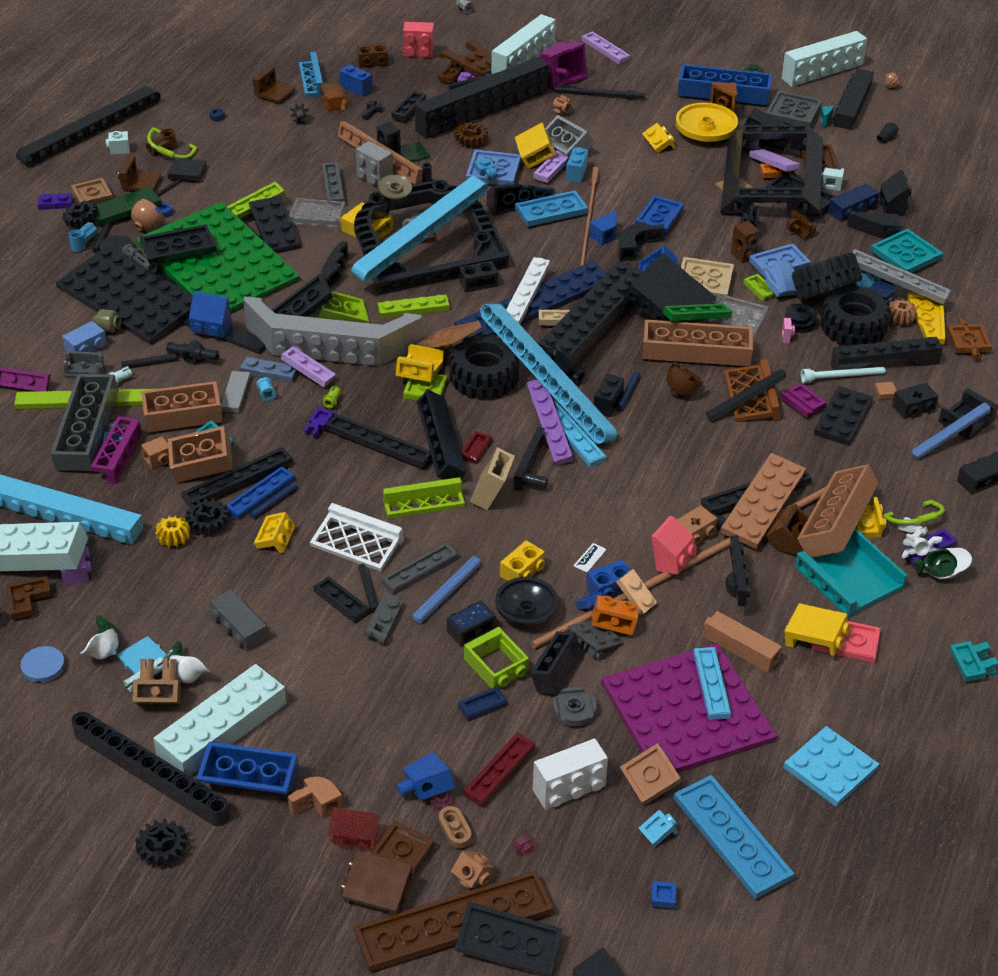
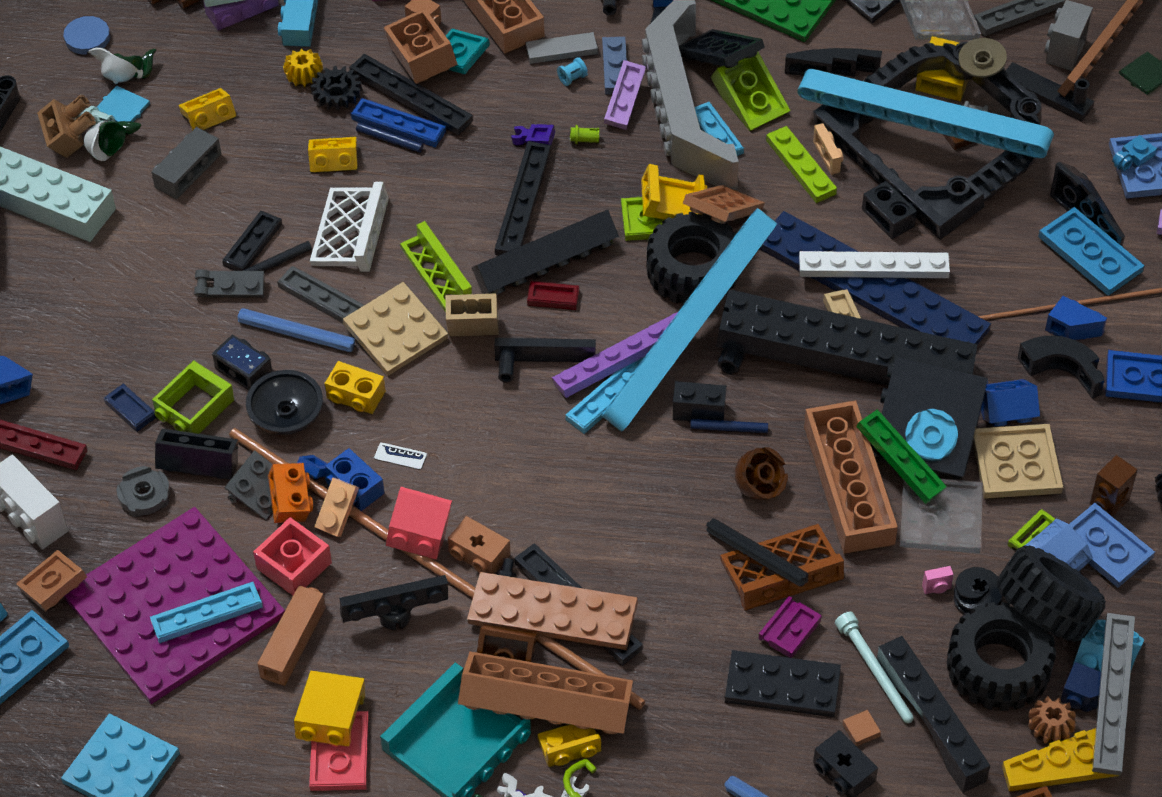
camera: 75 degrees right, 10 degrees up
(182, 597) = (208, 109): none -> yellow bracket
(389, 136) = (1132, 34): black brick -> none
(410, 289) = (829, 152): none -> light nougat plate
(473, 532) = (395, 328): none -> tan plate
(675, 624) = (292, 556): none -> coral brick
(686, 292) = (932, 434): none -> medium azure tile

